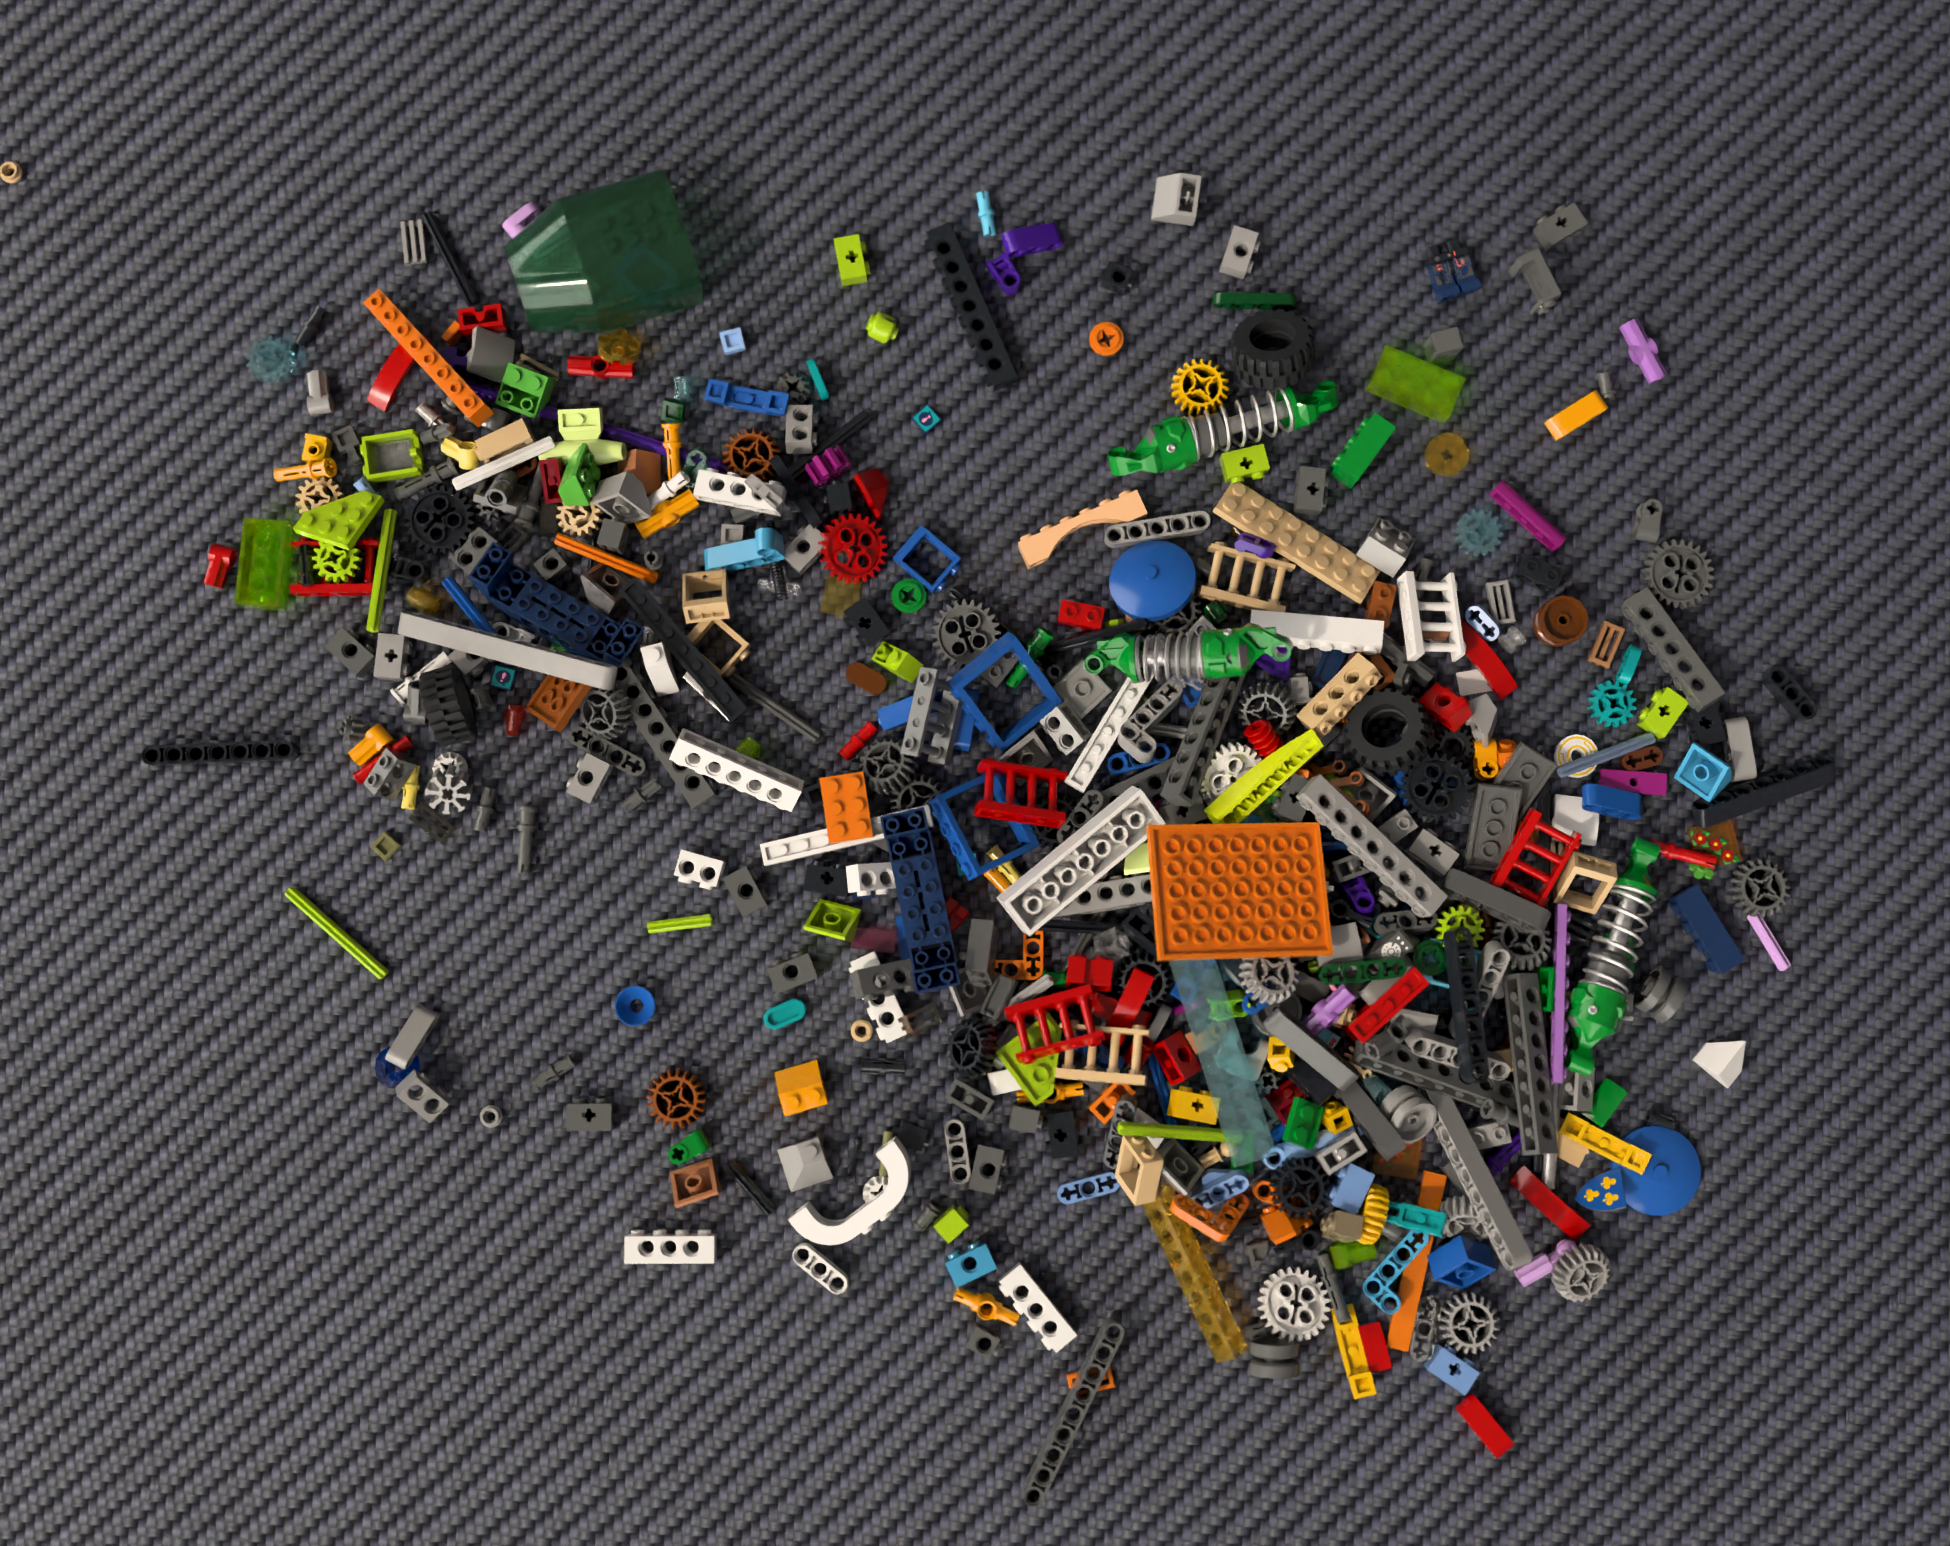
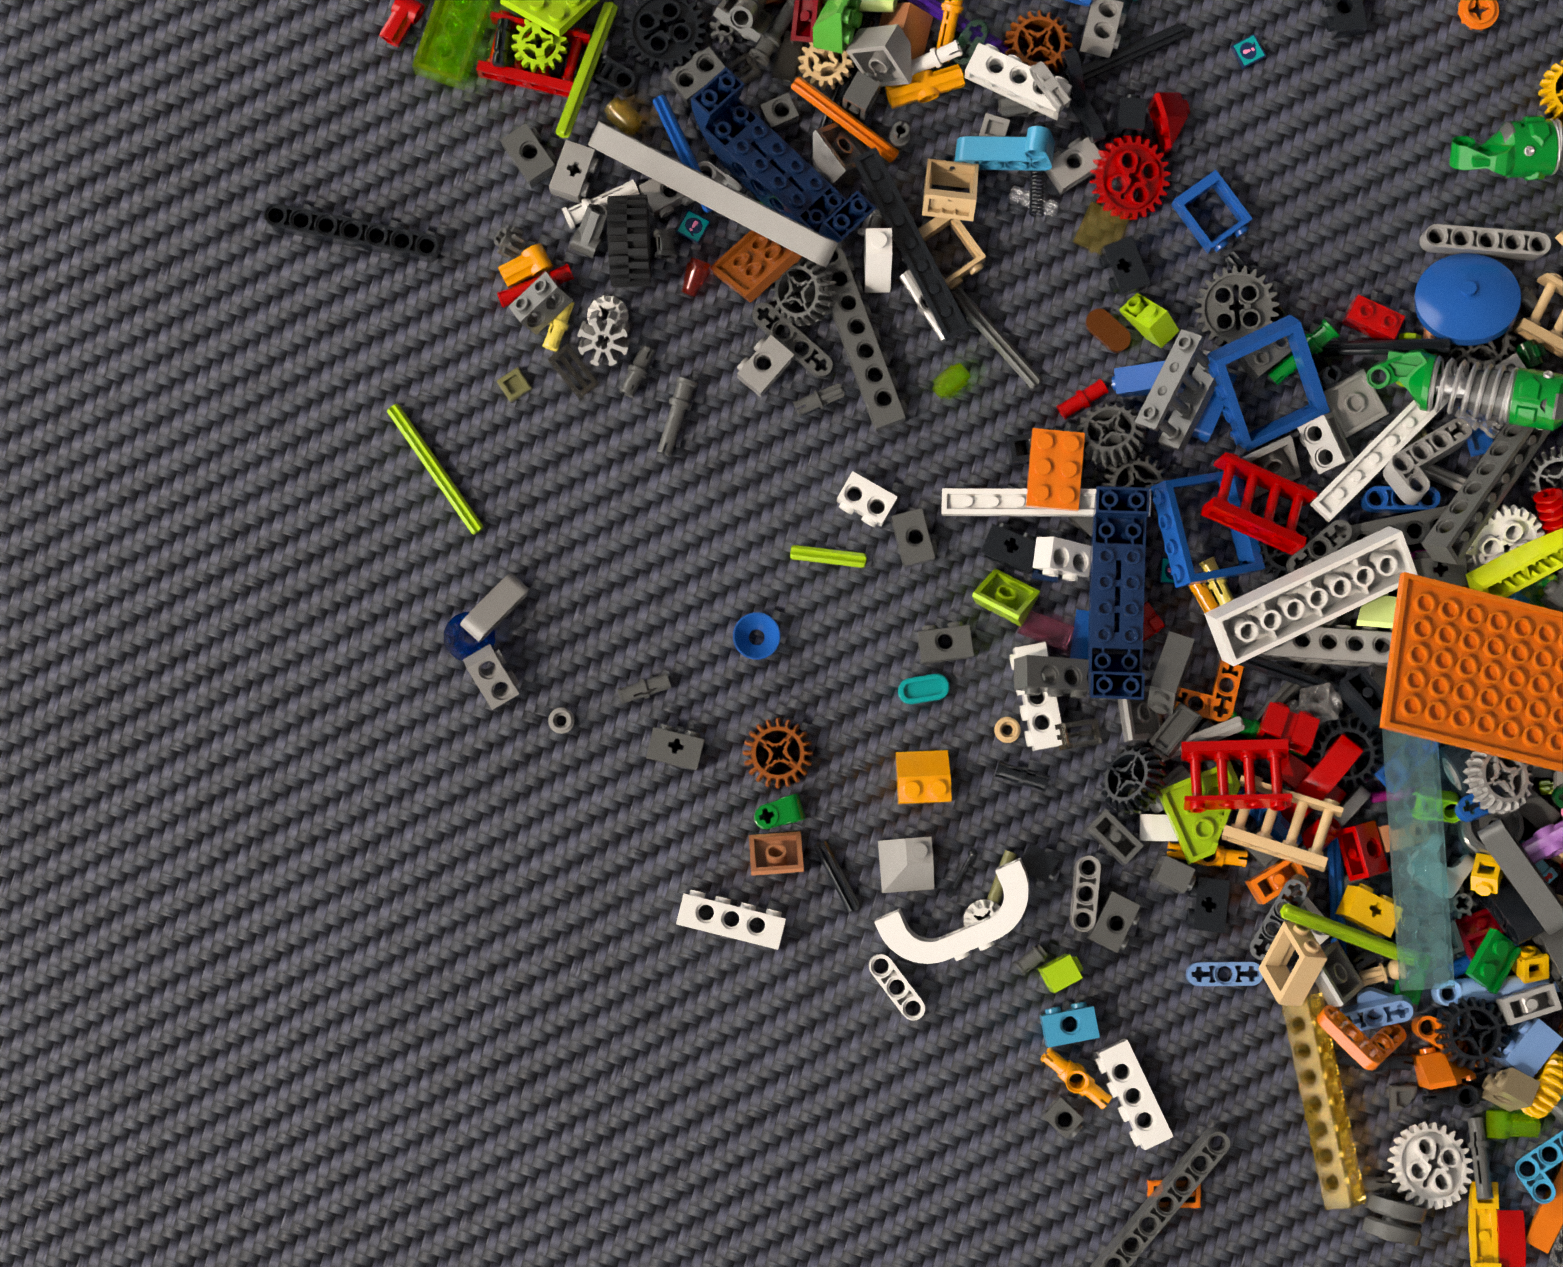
camera: 15 degrees right, 0 degrees up
(731, 760) = (935, 383): white brick -> none
(828, 466) = (1125, 76): magenta gear -> none
(907, 586) = (1179, 236): green gear -> none
(1039, 547) = (1342, 230): light nougat arch -> none

